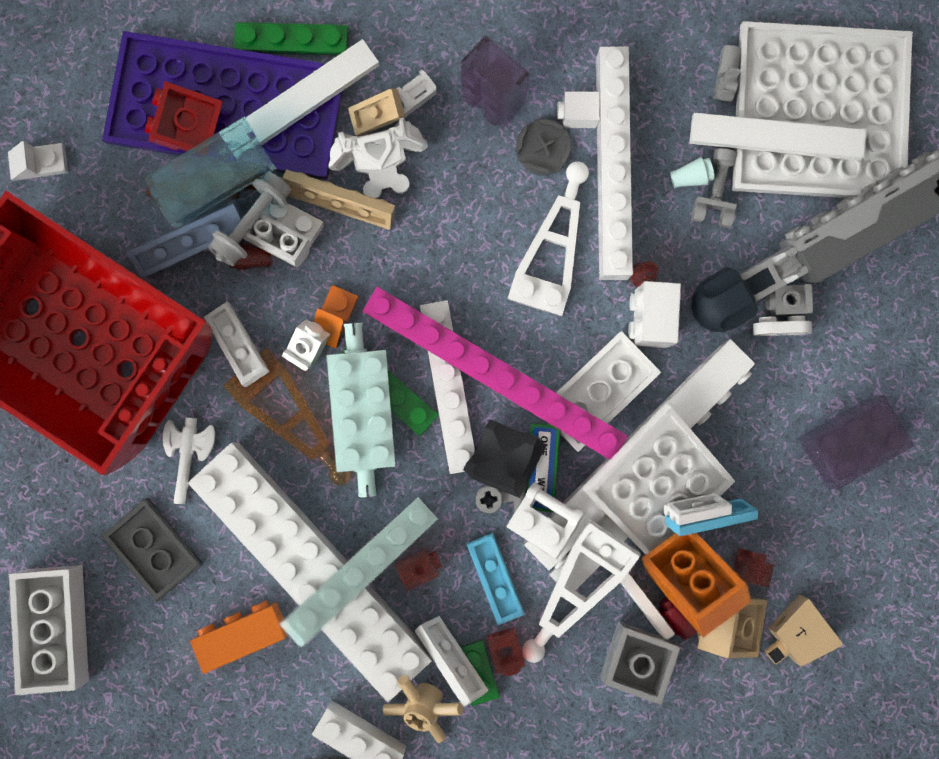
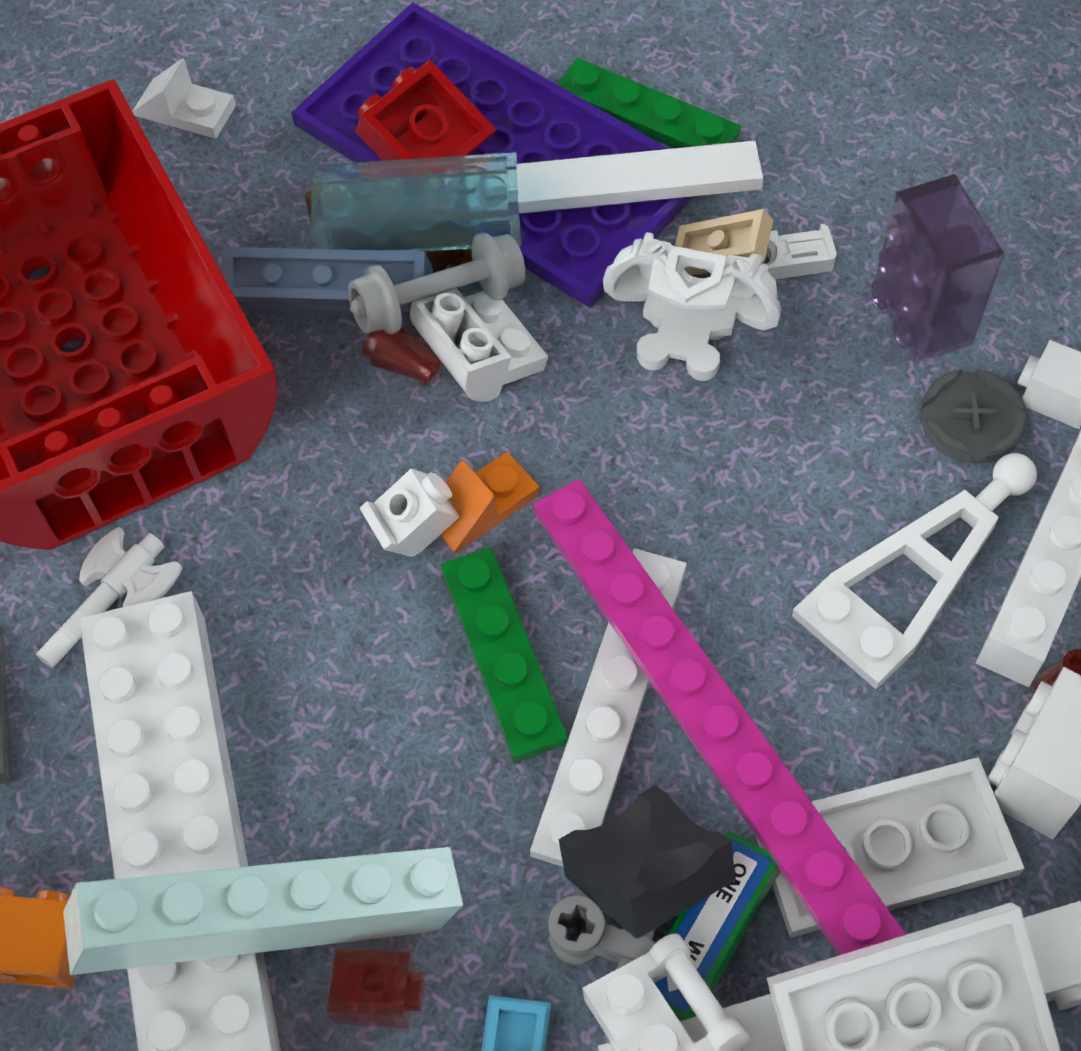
camera: 30 degrees right, 25 degrees down
(236, 344) = (300, 463): white tile -> none
(244, 395) = (296, 529): clear orange plate -> none
(339, 199) = (594, 339): tan plate -> none
(360, 410) = (434, 657): light aqua plate -> none

